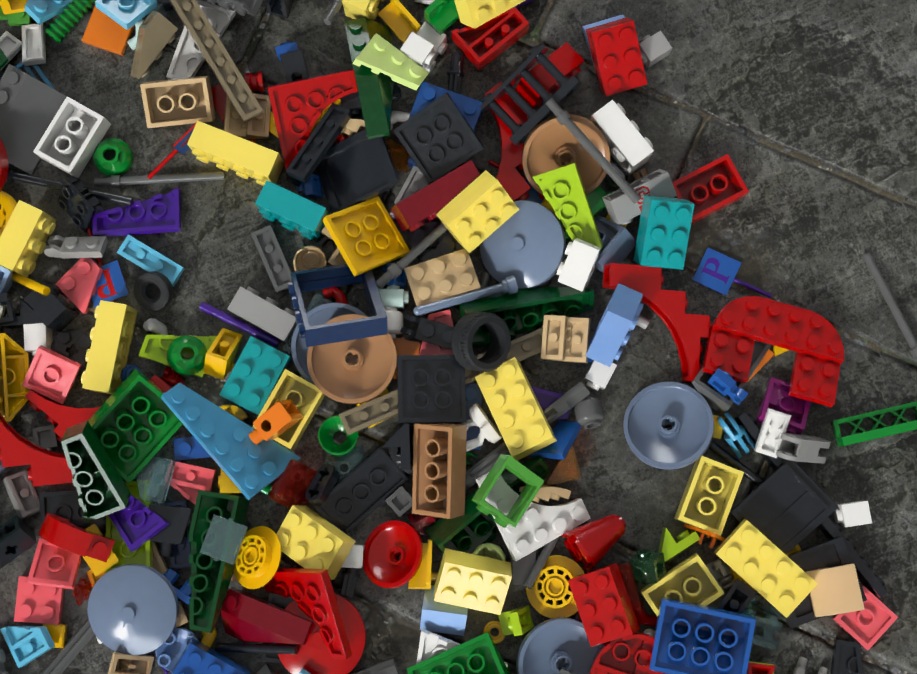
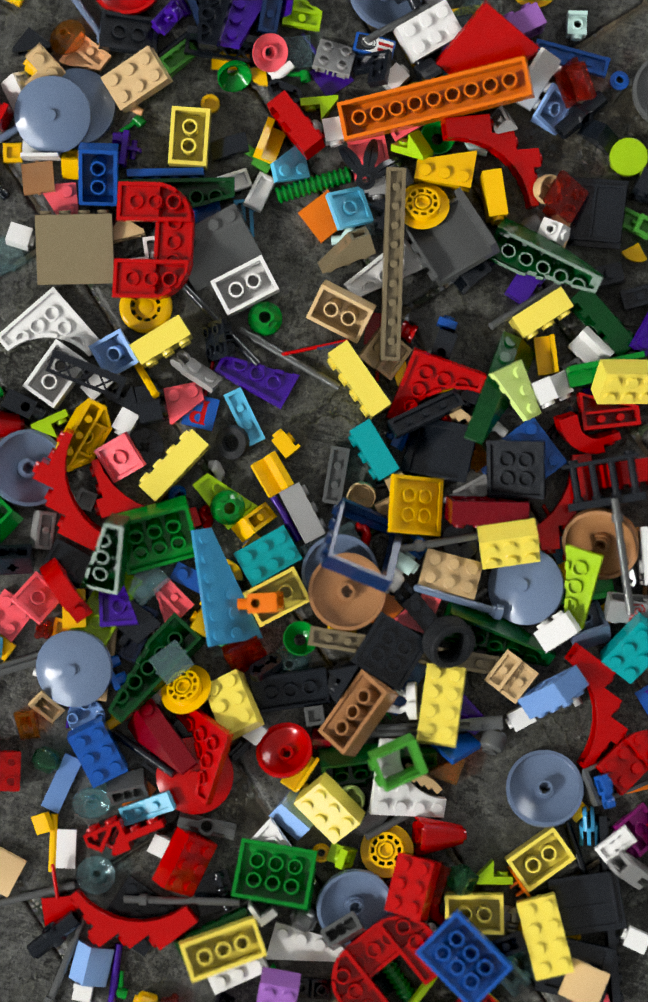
camera: 25 degrees right, 5 degrees up
(205, 260) = (284, 443): none -> yellow brick
(210, 296) = (272, 474): none -> yellow panel
(475, 76) = (570, 431): none -> red arch

